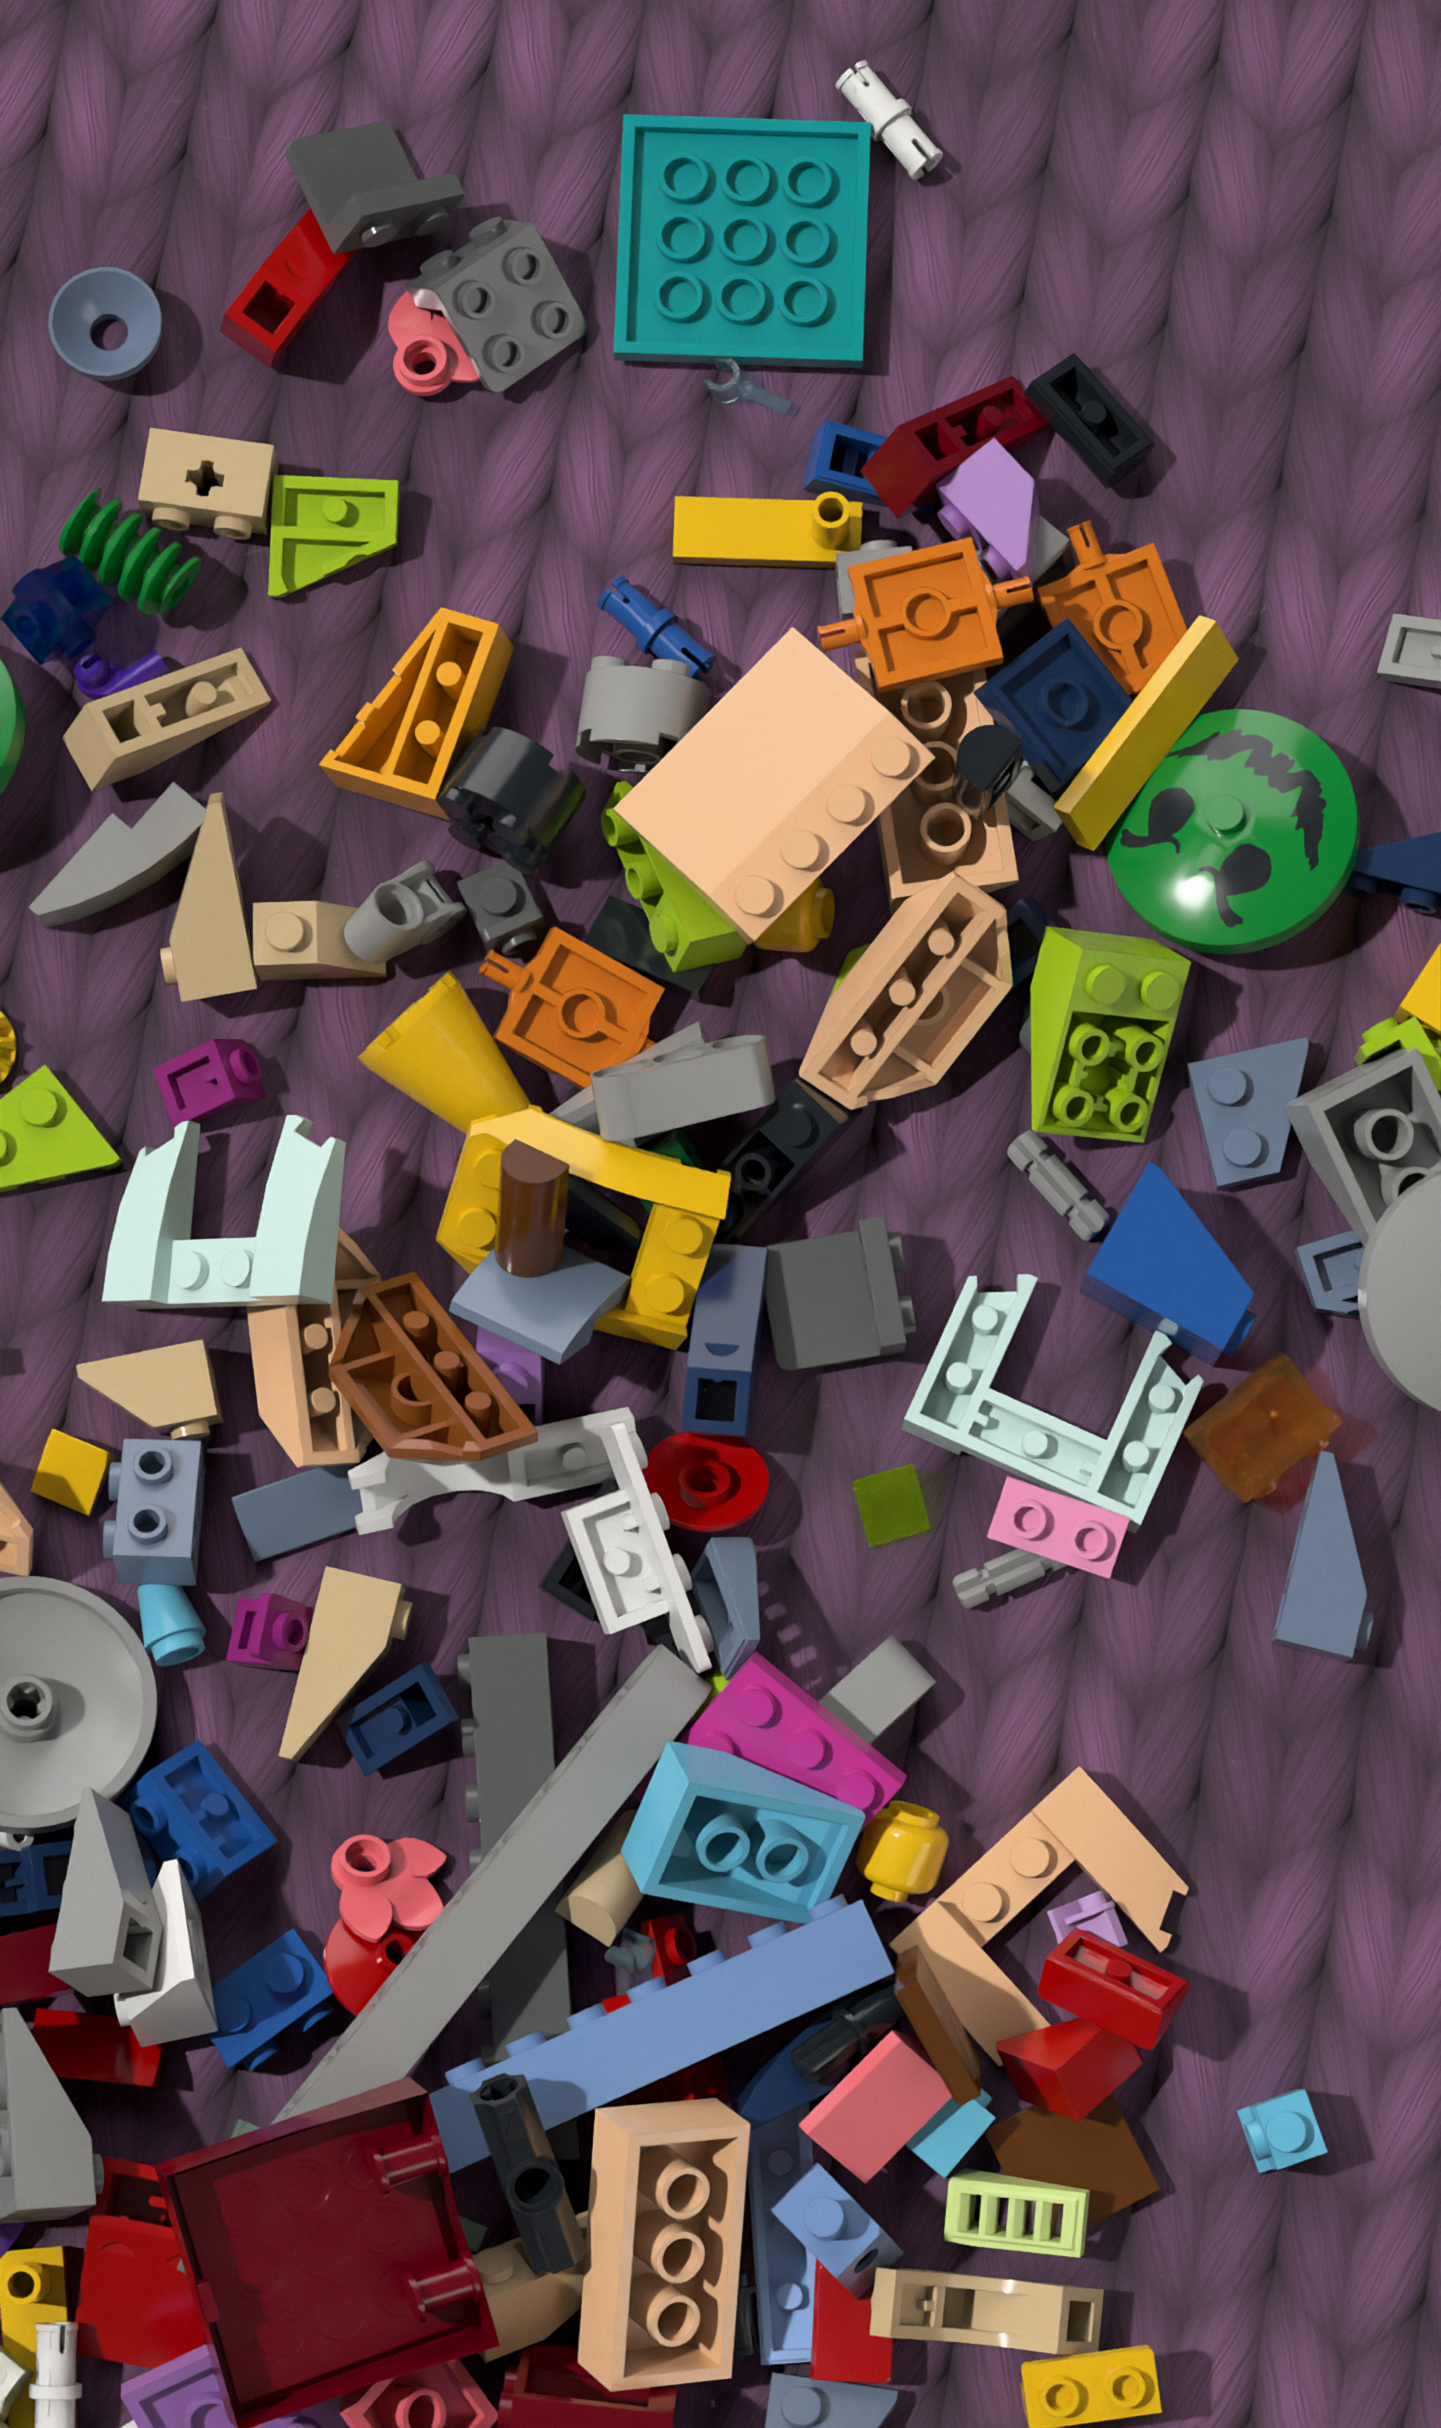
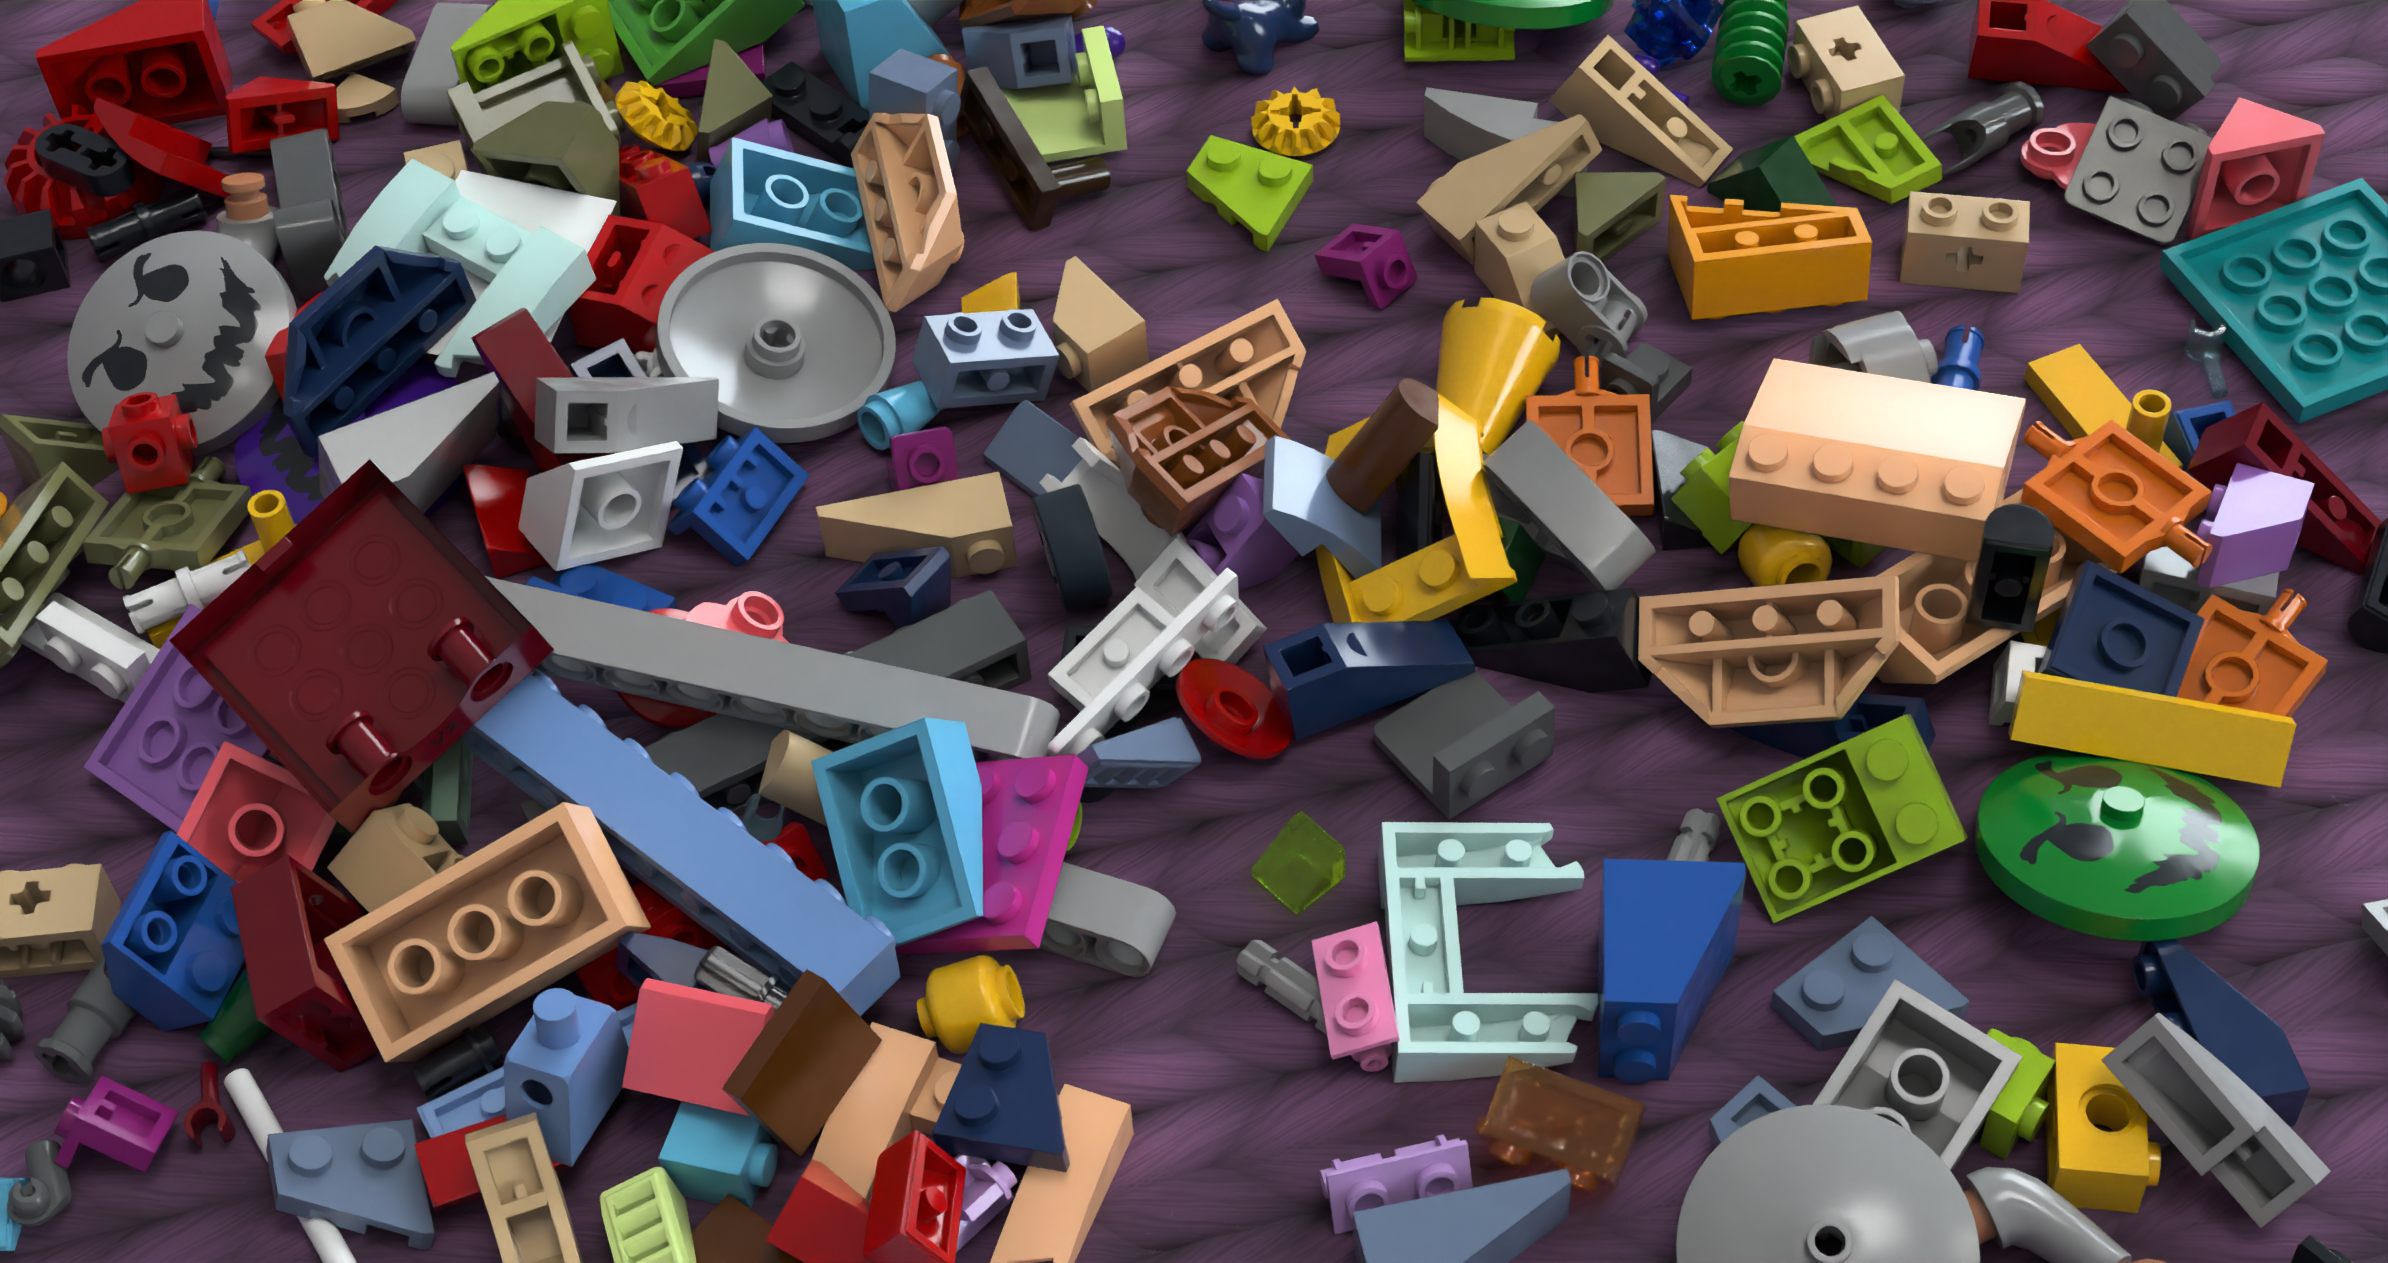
camera: 65 degrees right, 30 degrees down
(276, 825) = (1615, 209): none -> olive slope
(285, 1264) = (1246, 287): light aqua wedge -> none
(320, 645) = (1771, 177): none -> dark green slope
(359, 403) = (1988, 125): none -> dark grey piece
(452, 1539) = (1072, 546): none -> black wheel
(503, 520) = (1965, 242): none -> tan brick
(510, 798) = (1734, 320): black brick -> none
(518, 2144) = (525, 749): black piece -> none
(573, 215) = (2254, 166): none -> coral slope
(1030, 1866) = (1005, 1102): none -> dark blue wing
(1239, 1607) = (1409, 1175): none -> lavender hinge

